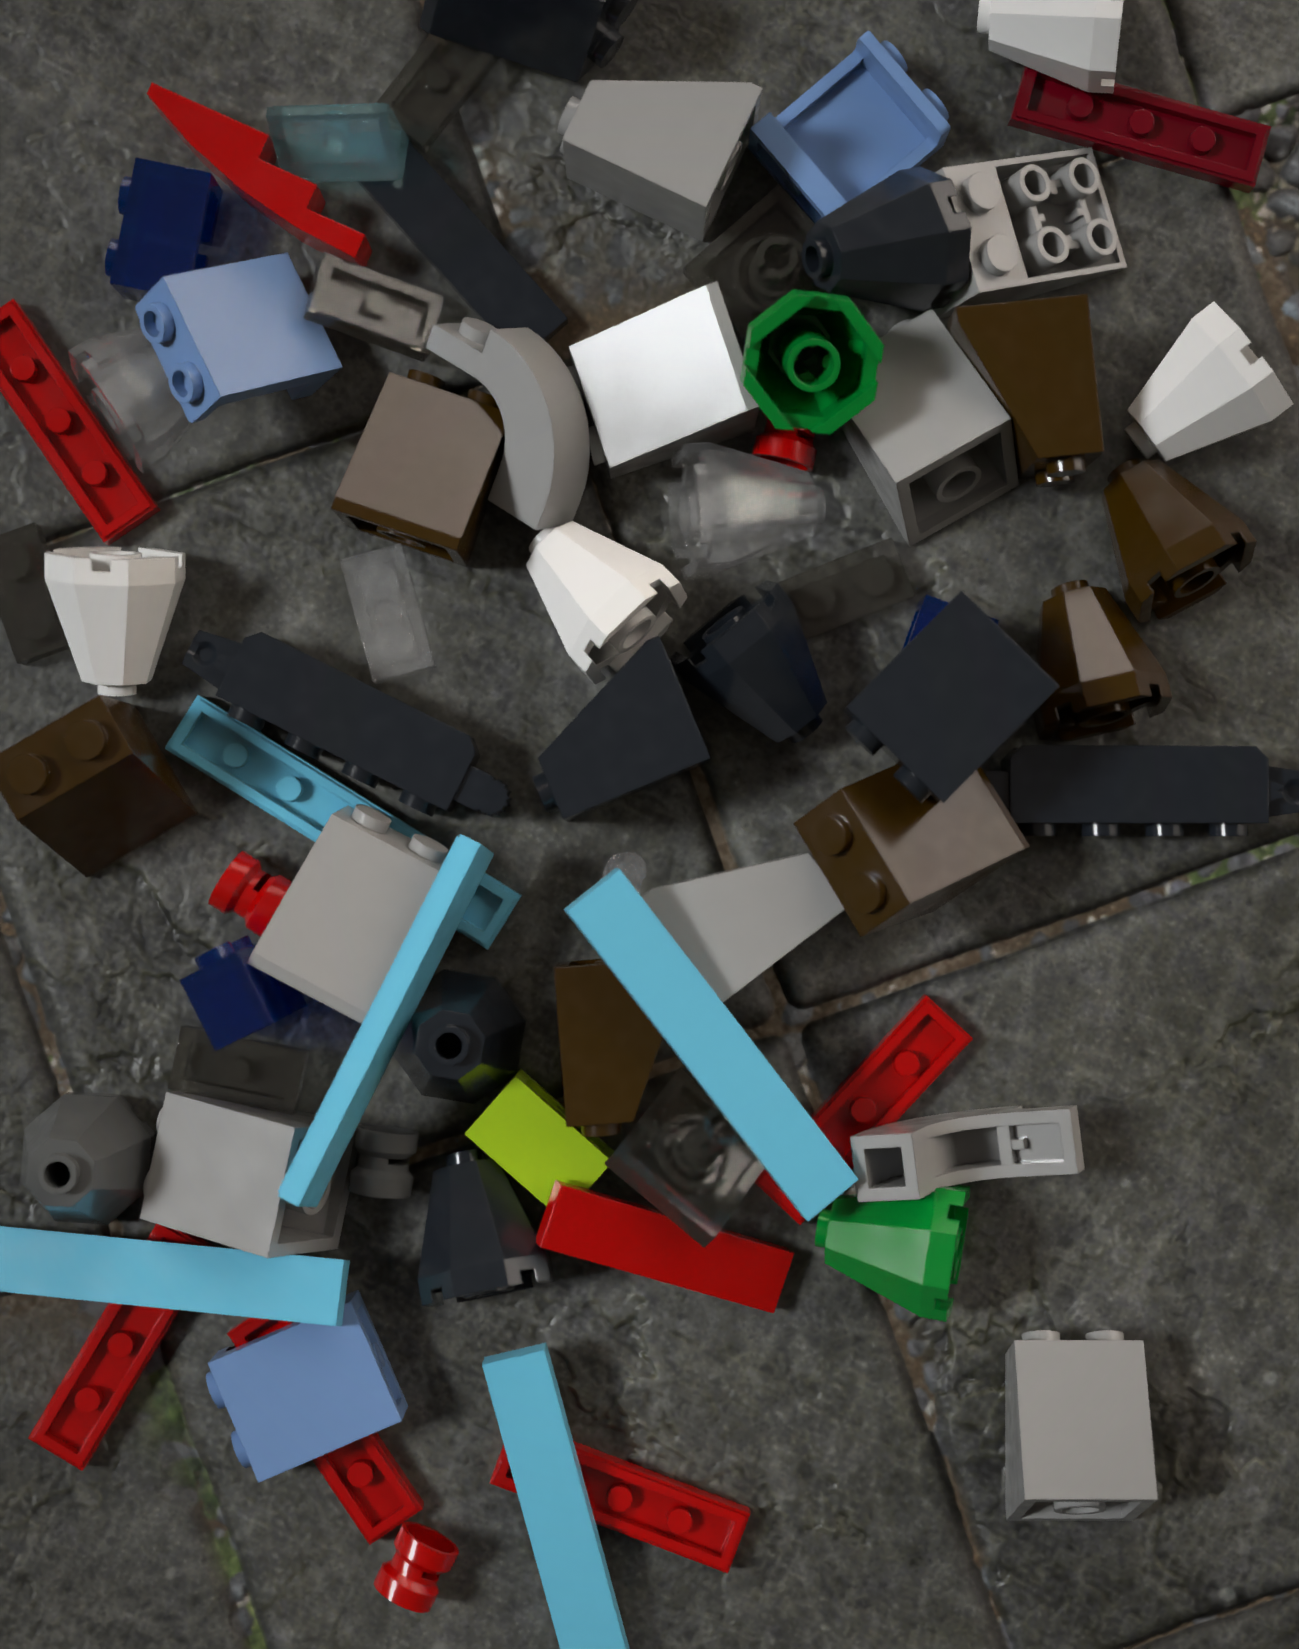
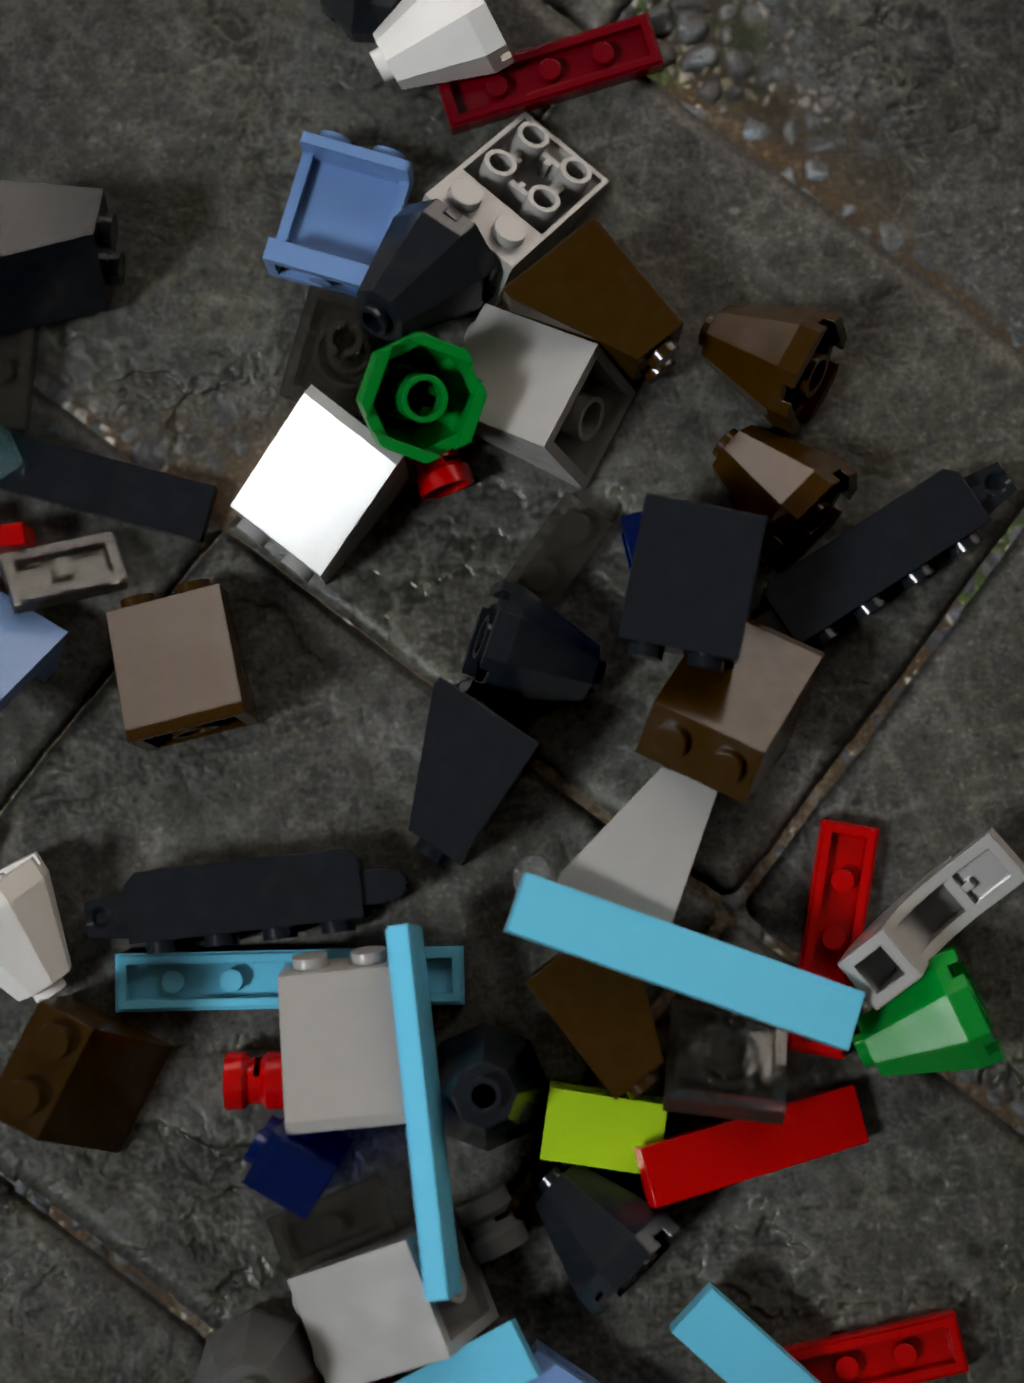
camera: 25 degrees left, 5 degrees down
(387, 613) = (221, 796): clear plate -> none
(541, 415) = (243, 569): light grey arch -> none
(600, 595) = (375, 676): white cone -> none
(660, 145) = (202, 313): light grey slope -> none
(737, 508) = (436, 545): clear cone -> none
(1205, 390) = (728, 232): white cone -> none

